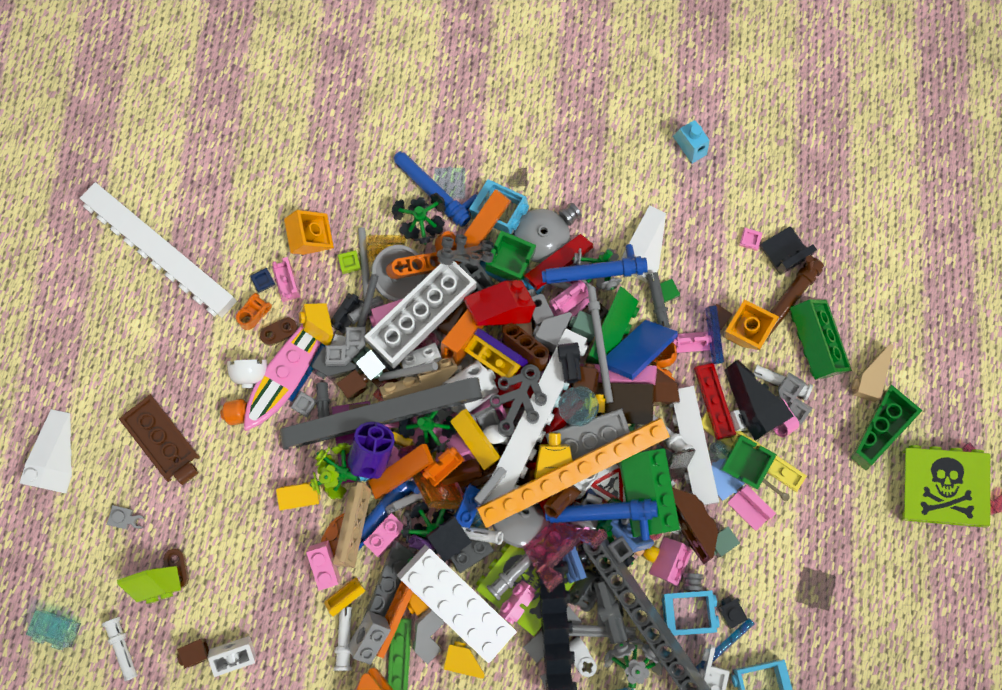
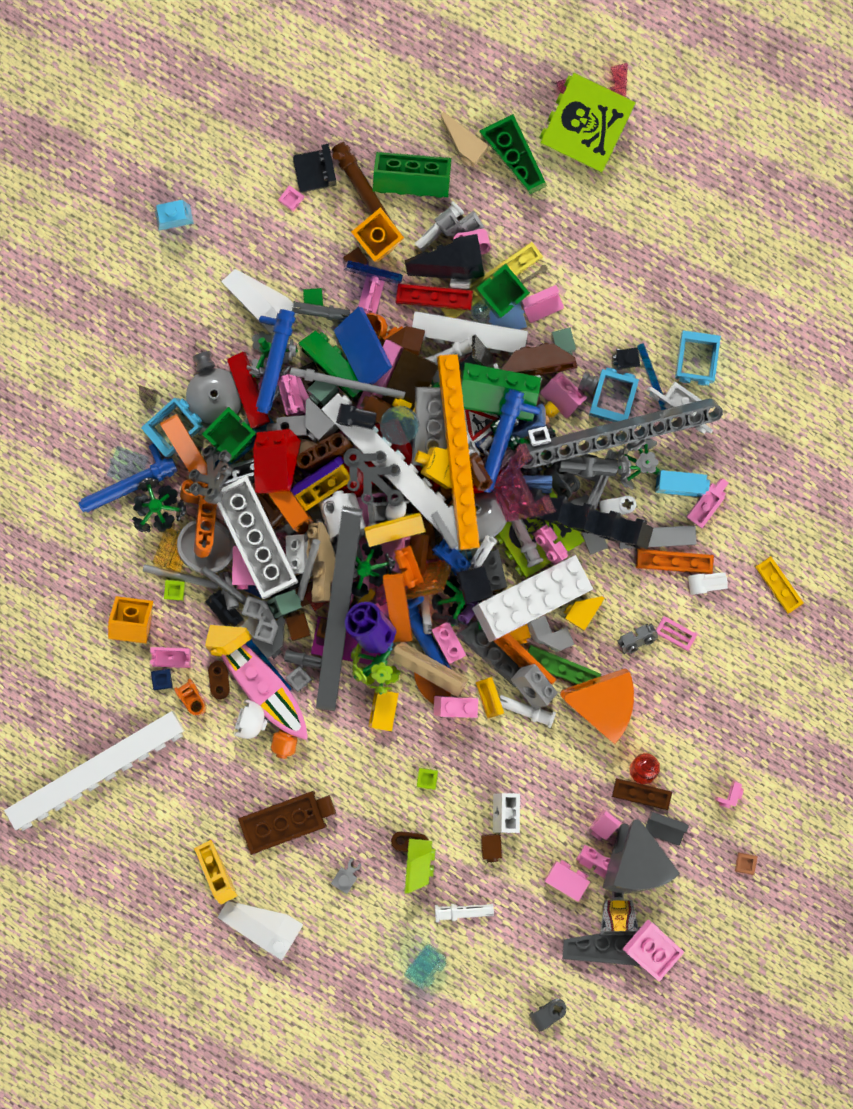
camera: 70 degrees left, 10 degrees up
(91, 392) = (215, 872): none -> yellow slope
(244, 563) = (427, 778): none -> lime plate
(816, 589) = (633, 275): clear smoke piece -> none

